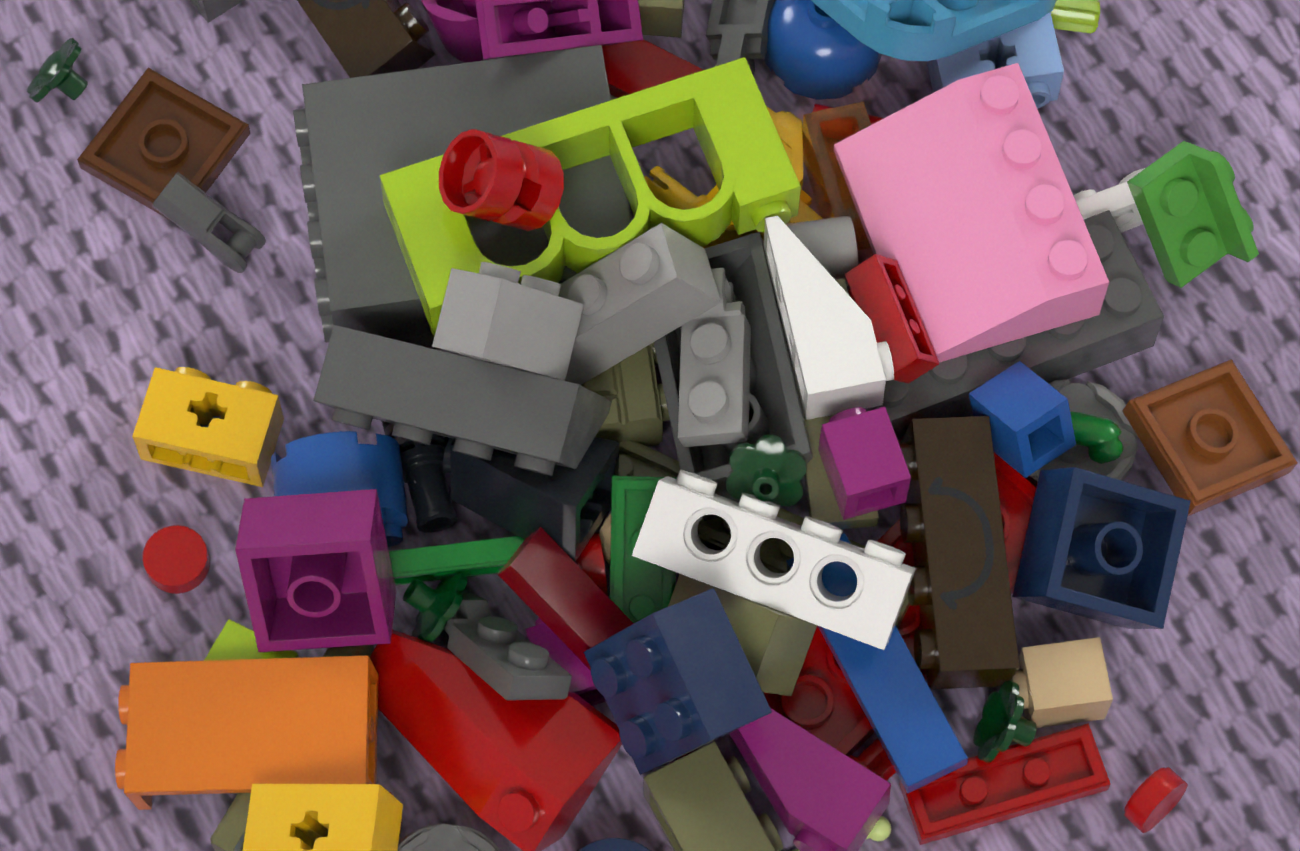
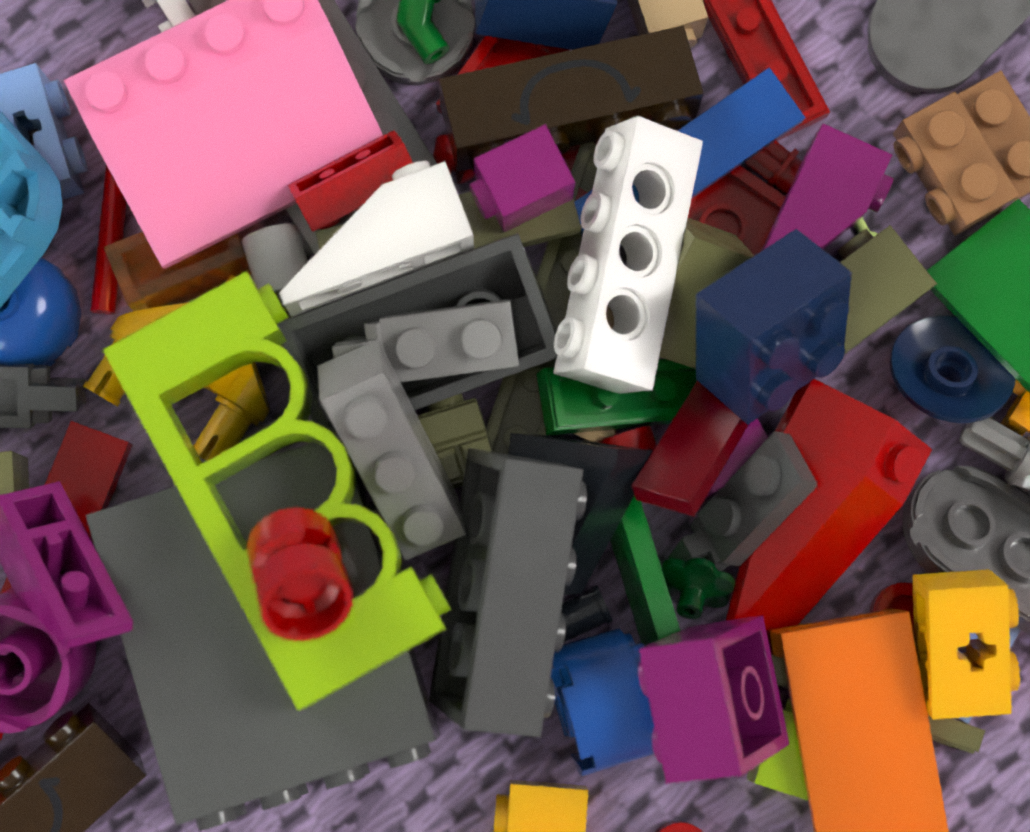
camera: 100 degrees left, 15 degrees up
(508, 321) = (456, 541): light grey brick -> none
(767, 463) = (543, 274): dark green plant -> none
(1003, 723) = (721, 49): dark green plant -> none
(1026, 417) = (425, 49): blue brick -> none

